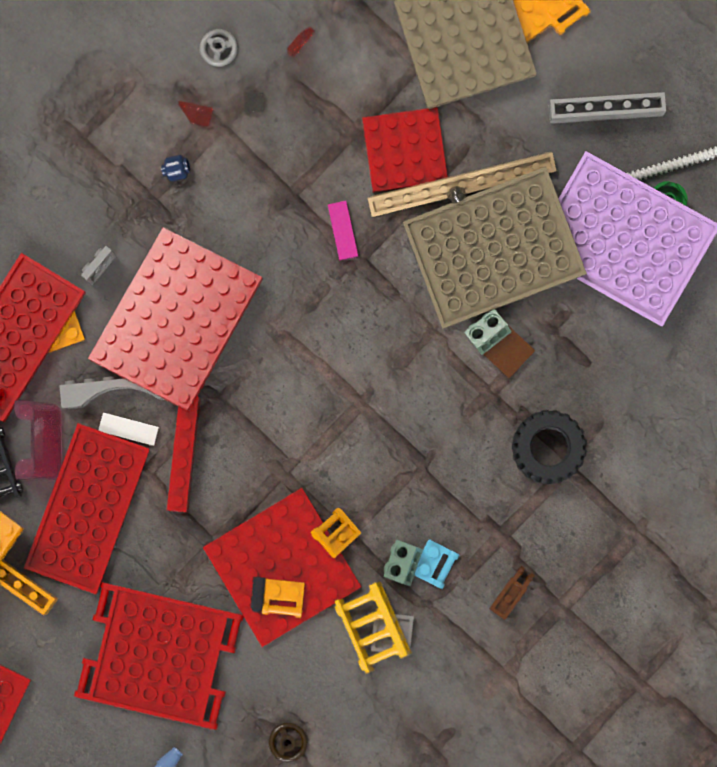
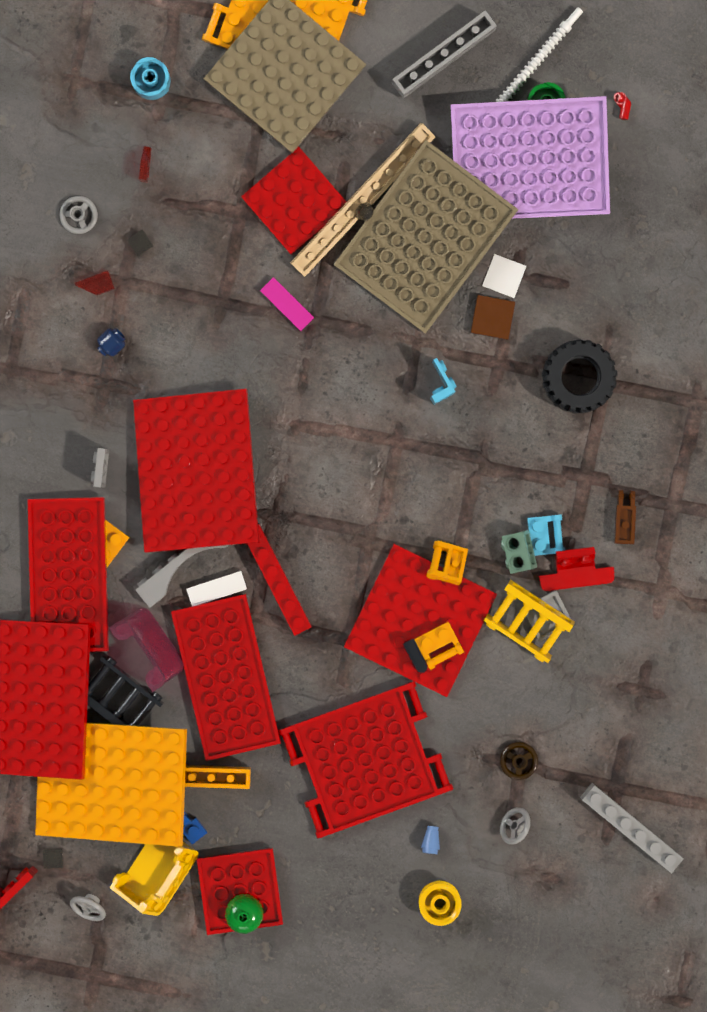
camera: 40 degrees left, 5 degrees up
(422, 386) = (441, 393): none -> medium azure bracket
(441, 609) = (576, 569): none -> red plate
(491, 335) = (470, 313): sand green brick -> none
(540, 323) = (504, 276): none -> white sticker

